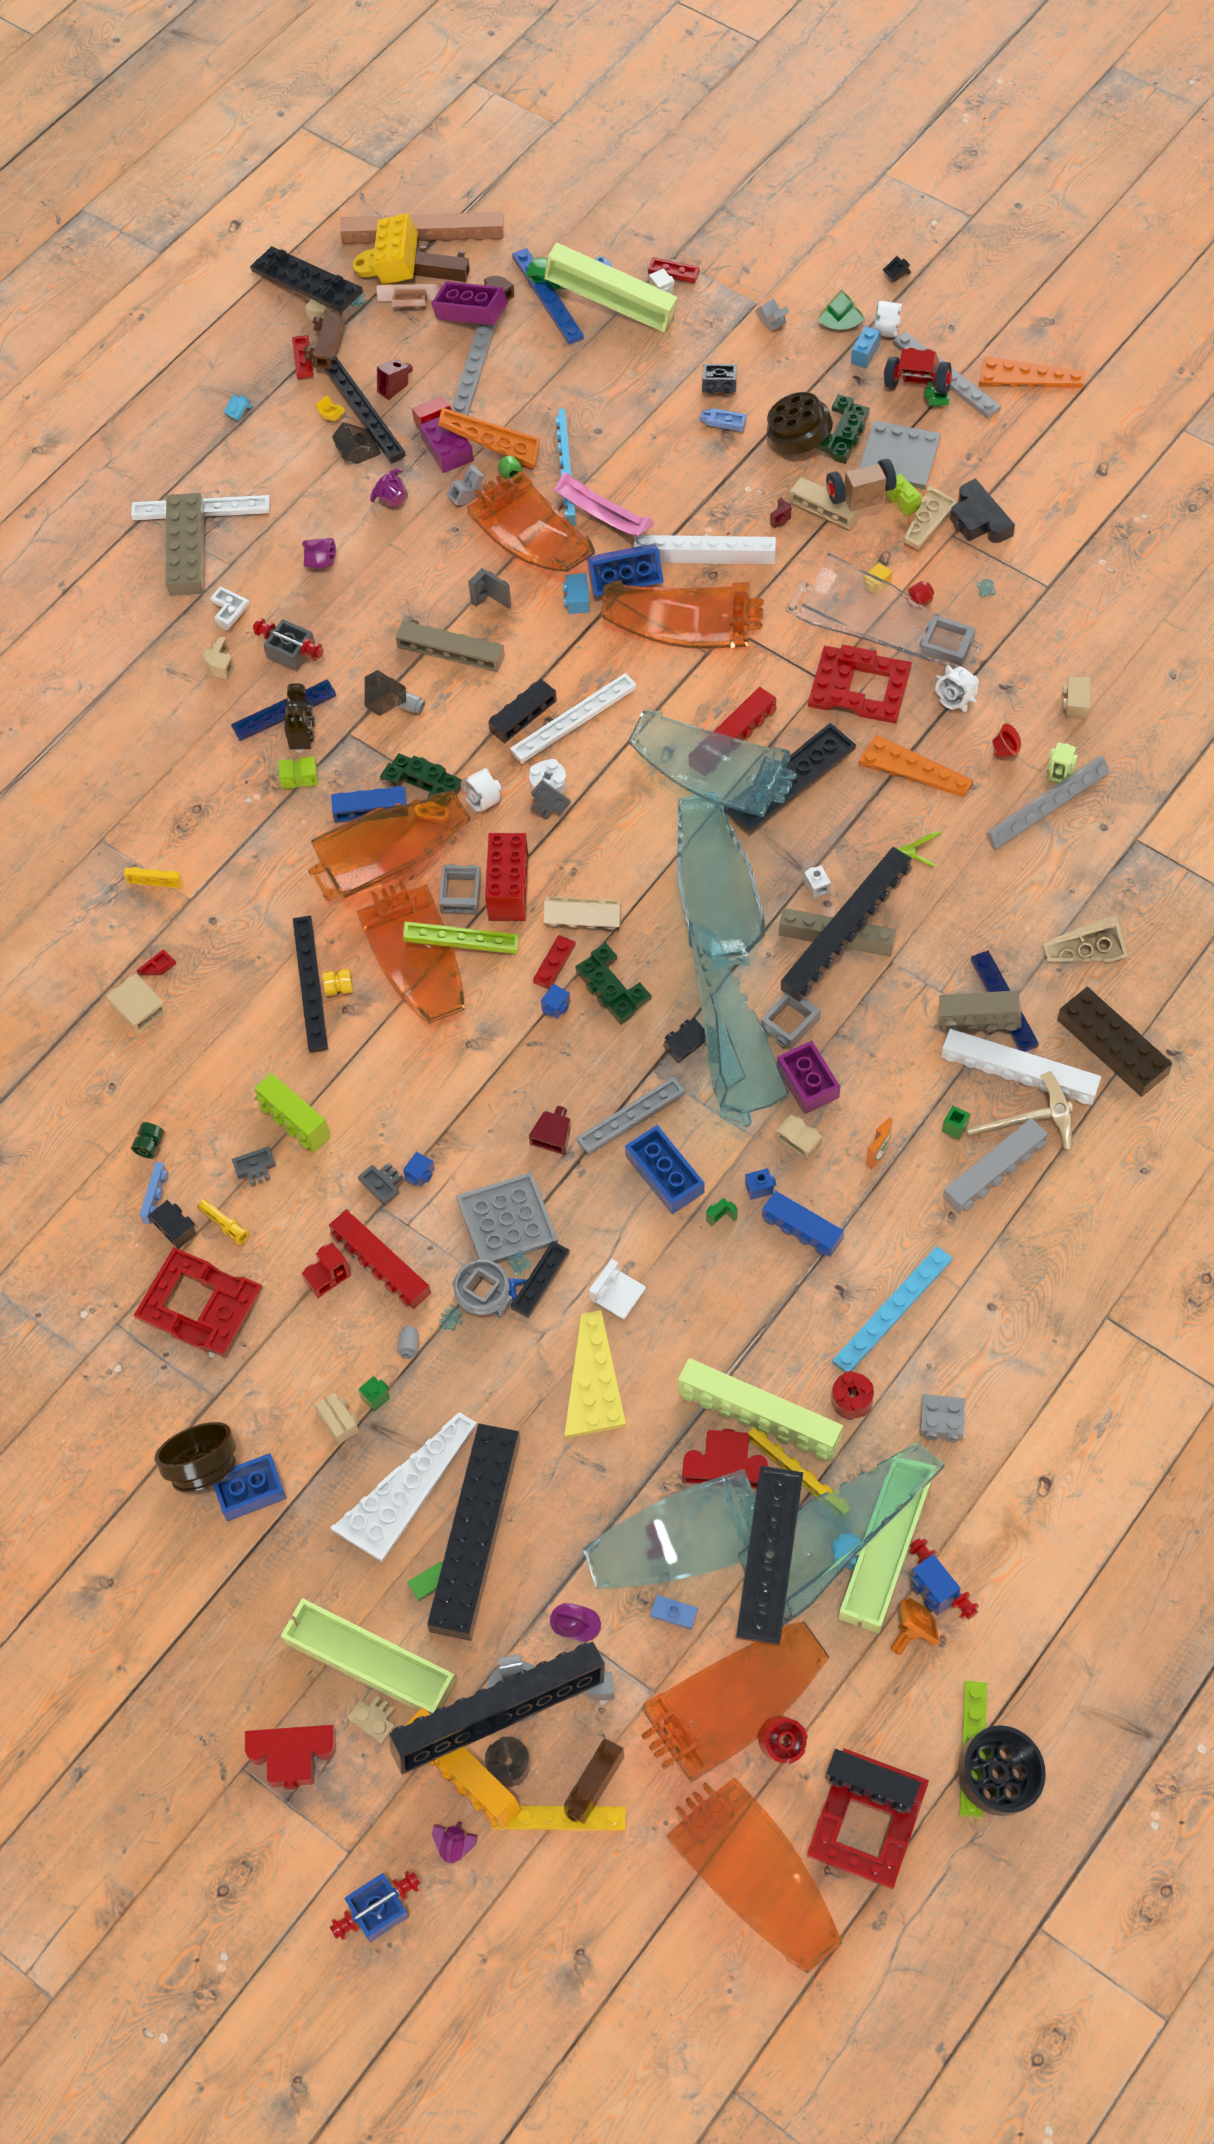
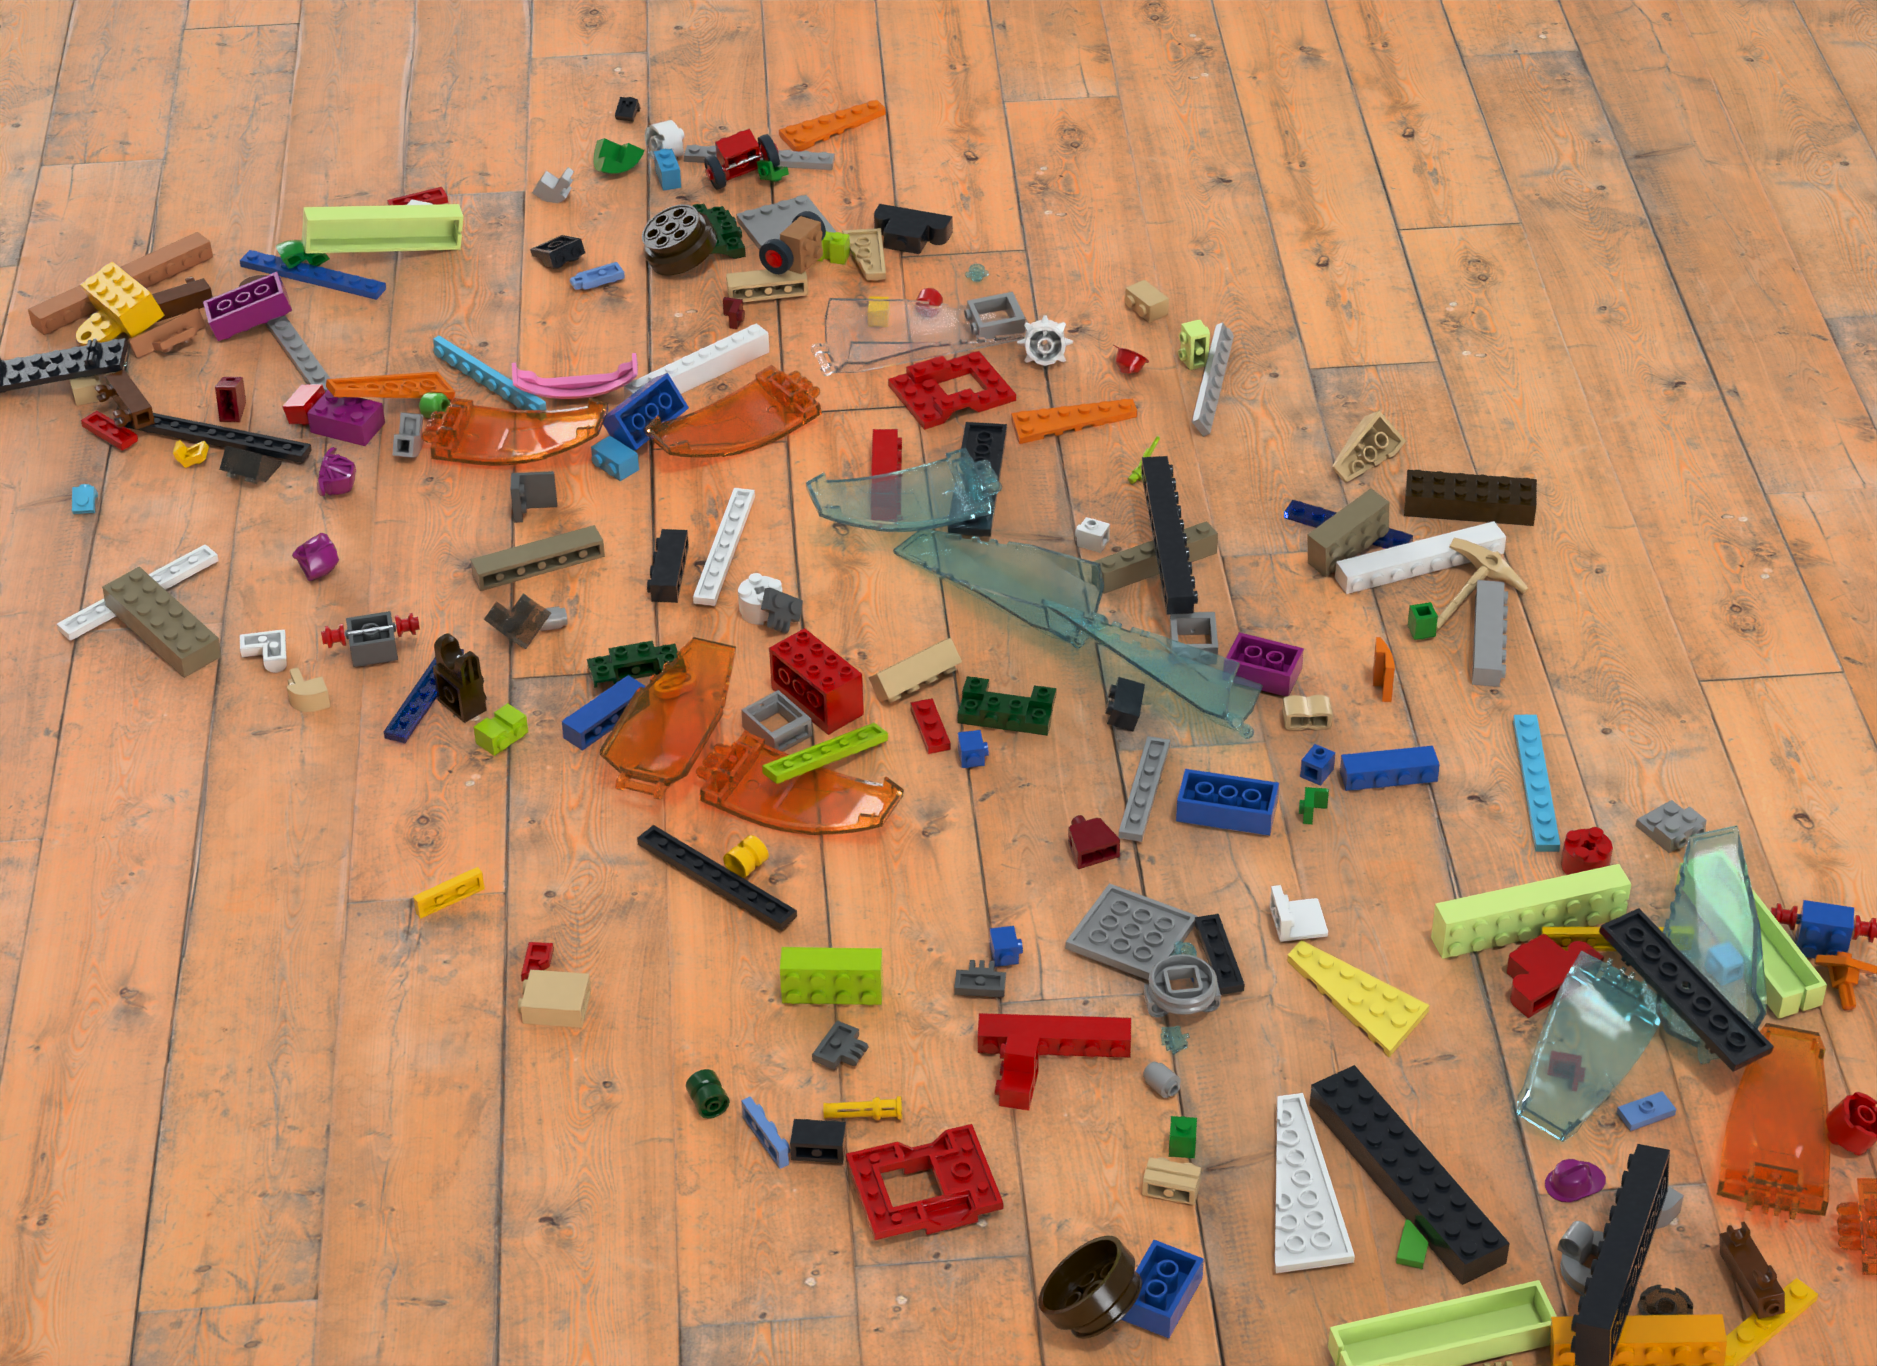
camera: 45 degrees left, 20 degrees down
(481, 790) = (709, 627): white brick -> none

